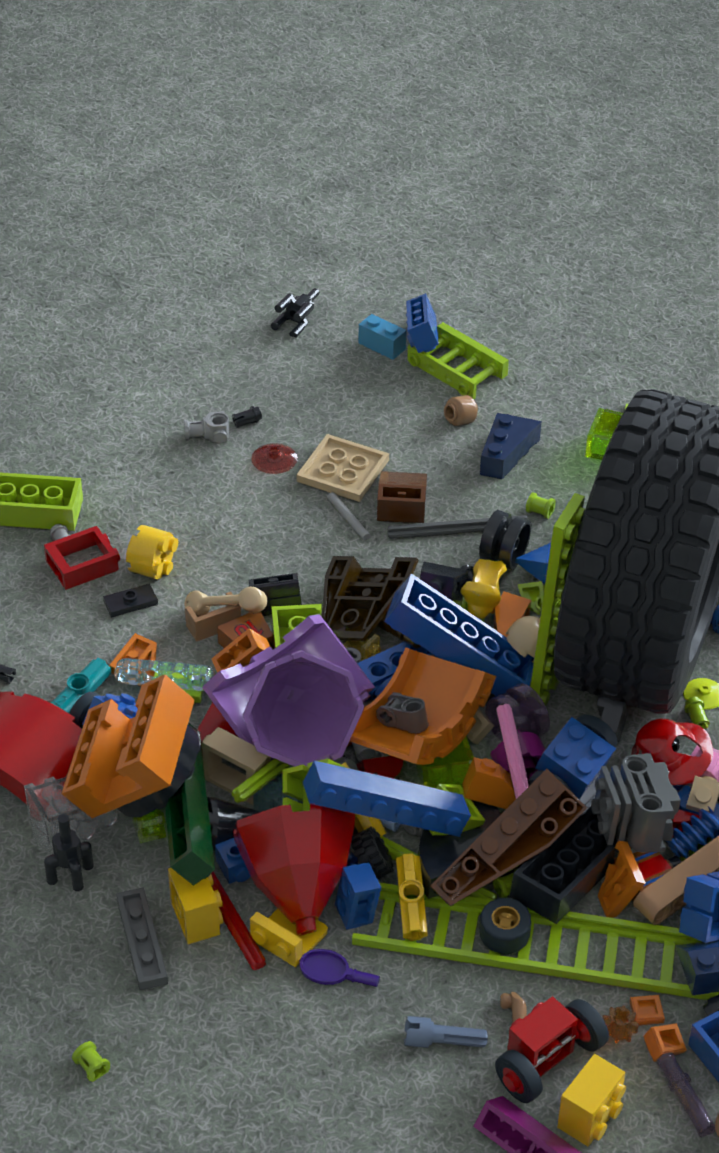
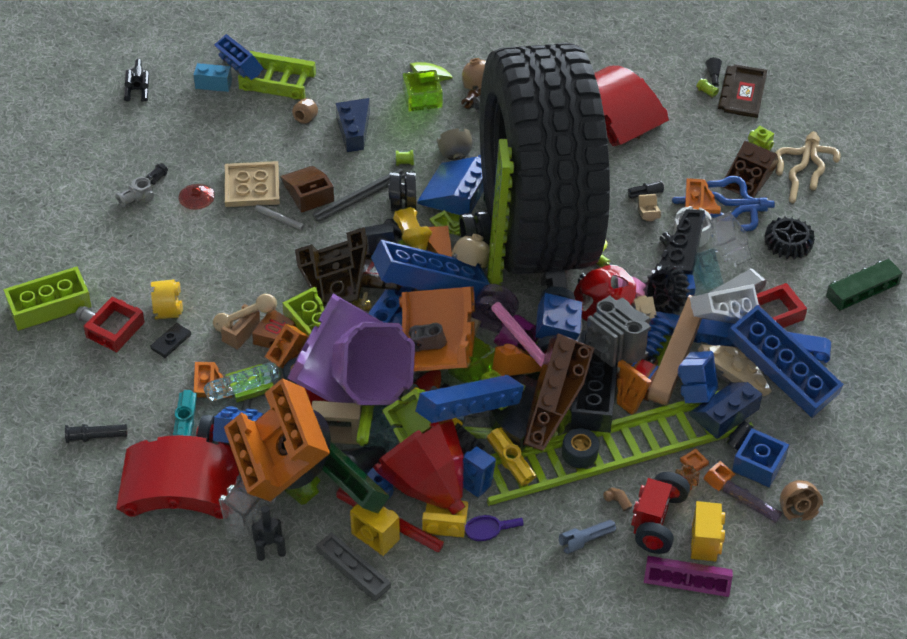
camera: 30 degrees left, 5 degrees up
(280, 590) = (277, 286): black brick -> none

